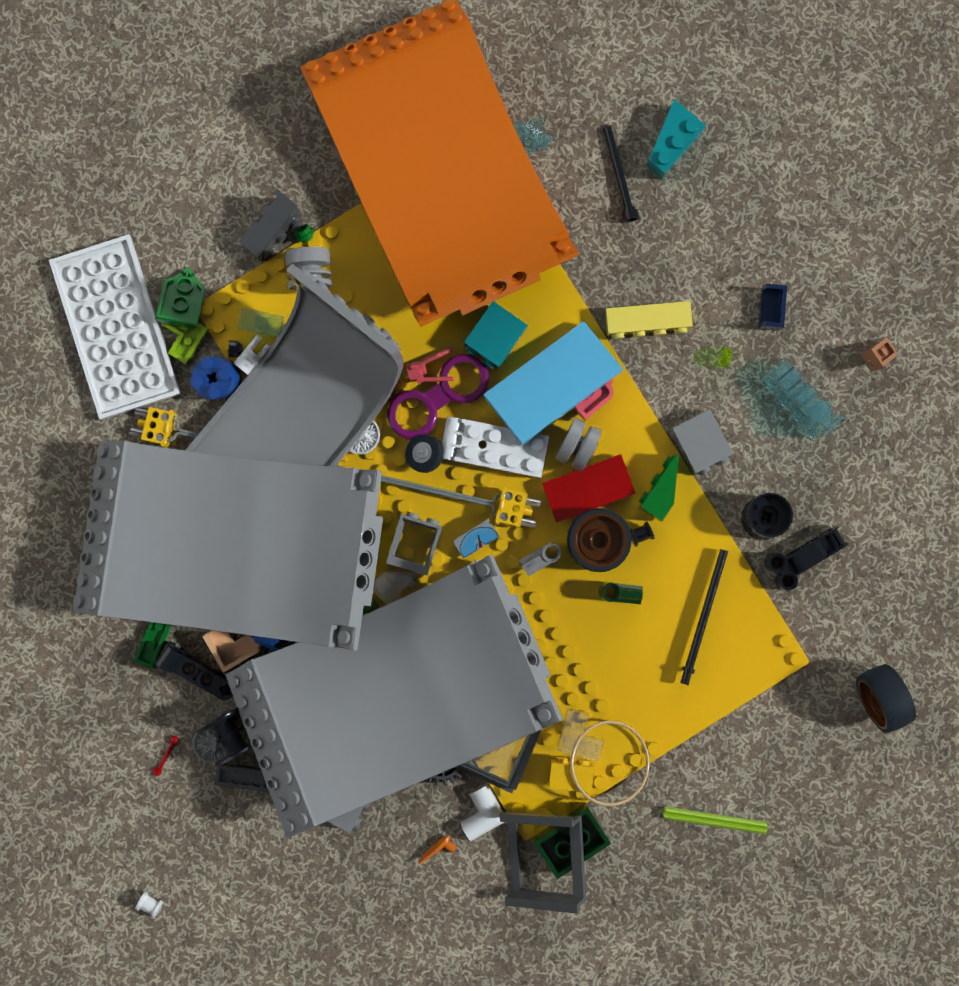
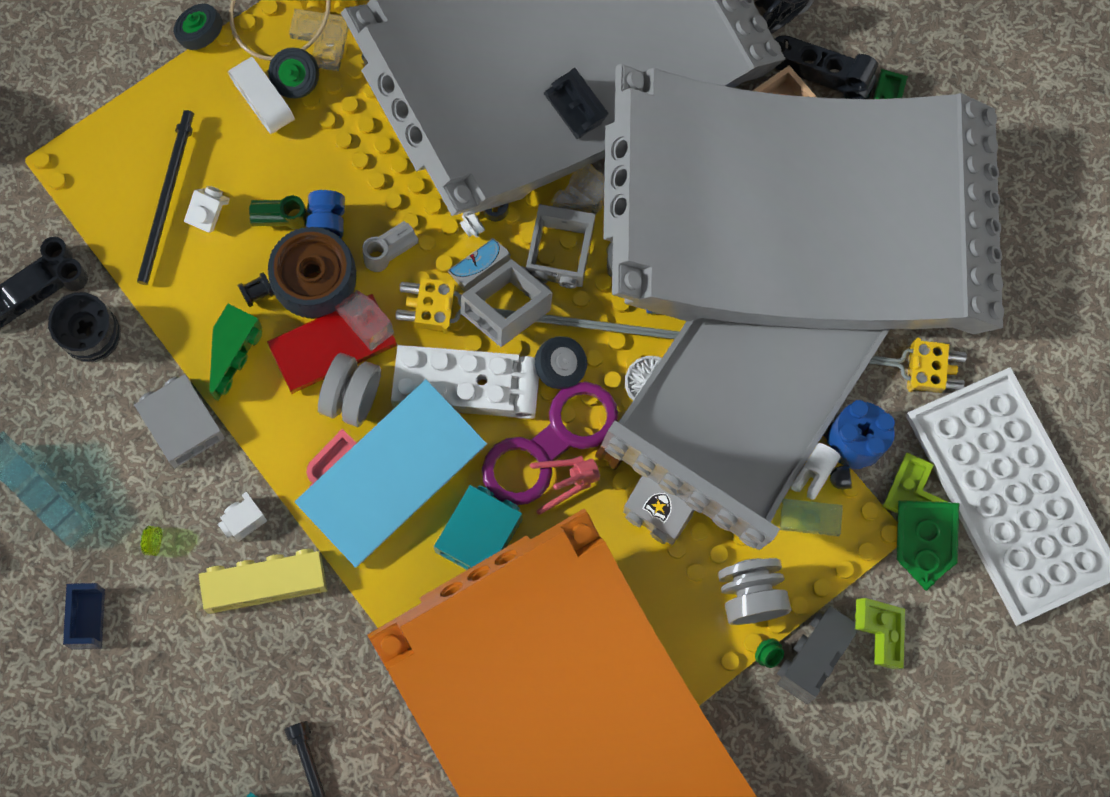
camera: 175 degrees right, 15 degrees down
(220, 241) = (889, 629): none -> lime plate
(390, 644) = (576, 103): none -> black hinge
(475, 488) = (489, 320): none -> light grey window
(564, 499) = (365, 319): none -> clear slope
(586, 586) = (326, 211): none -> blue wheel
(602, 706) = (293, 72): none -> black wheel
(628, 691) = (261, 95): none -> white beam
(660, 366) = (241, 518): none -> white brick
(673, 757) = (198, 26): none -> black wheel
(674, 603) = (205, 208): none -> white bracket

